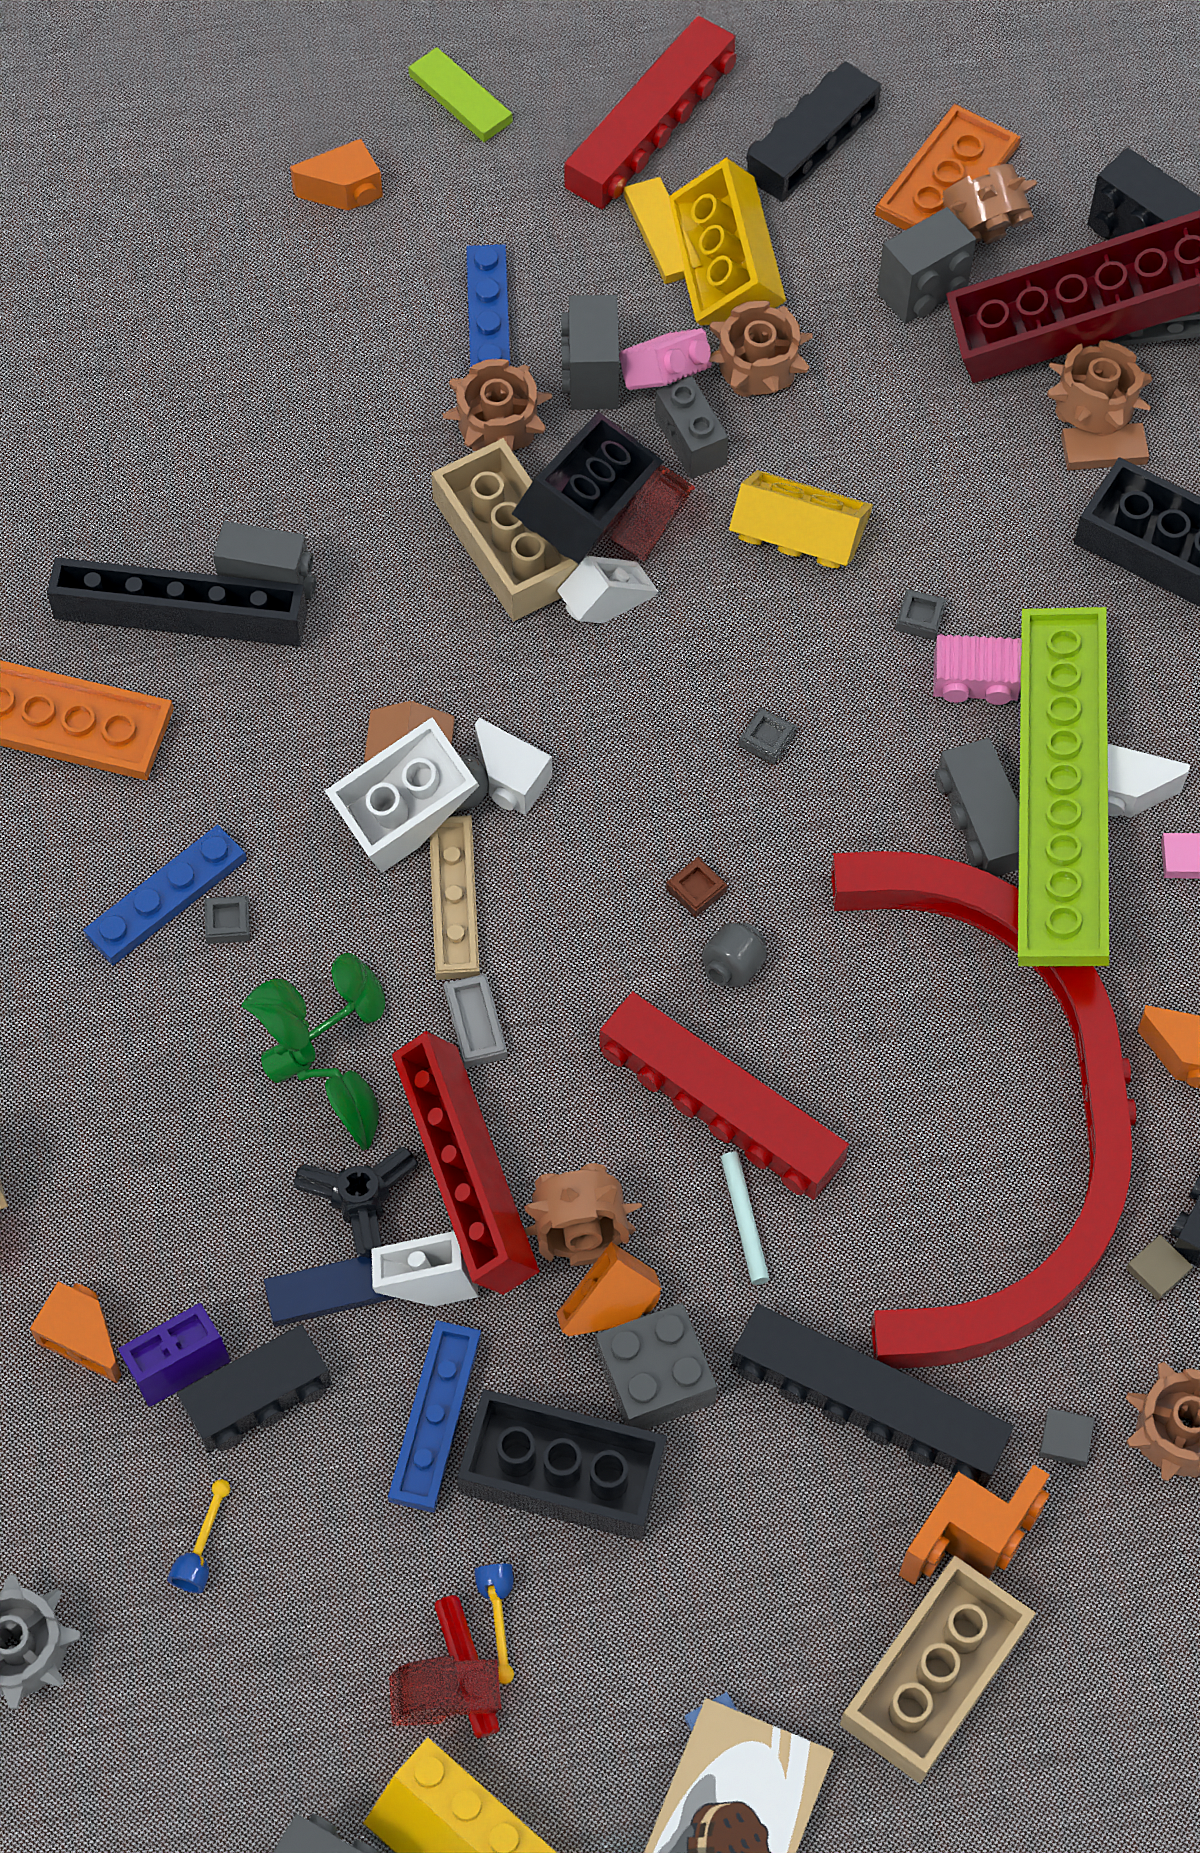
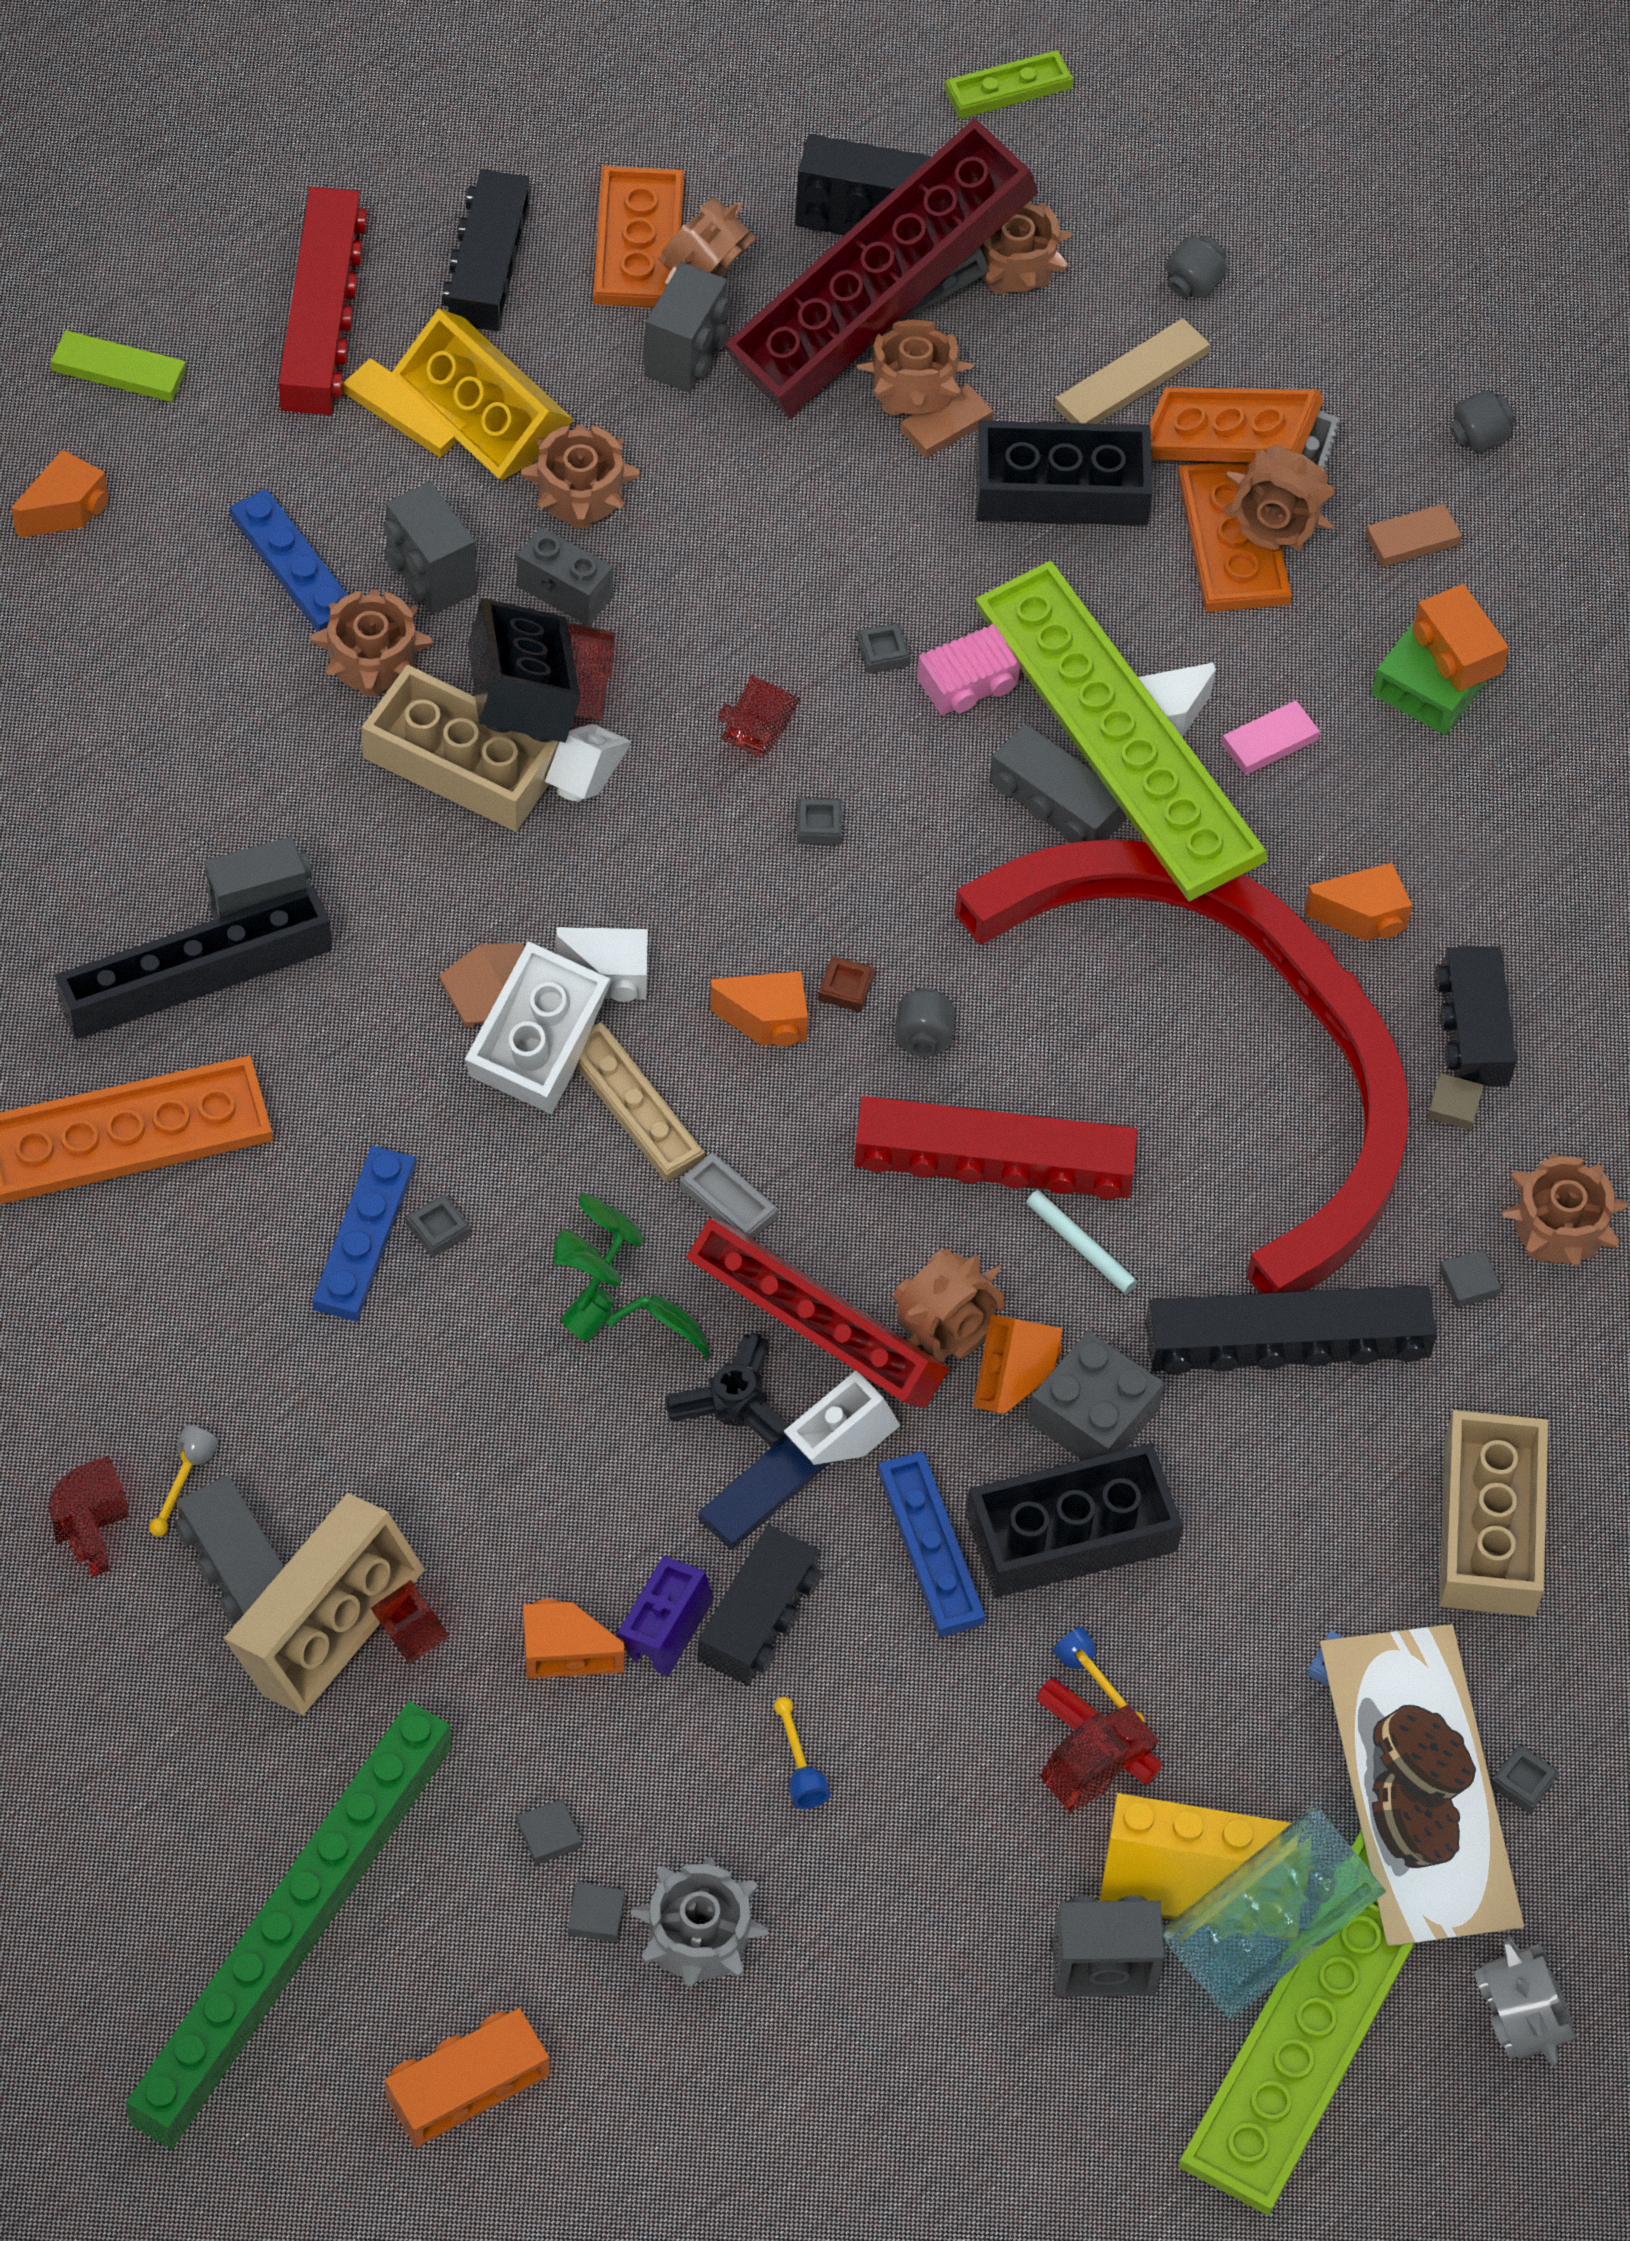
camera: 35 degrees left, 5 degrees down
(612, 872) = (763, 1006): none -> orange slope
(665, 359) = (506, 522): bright pink brick -> none
(772, 622) = (758, 717): none -> clear red brick
(799, 518) = (721, 613): yellow slope -> none
(976, 1526) = (1450, 1377): orange bracket -> none

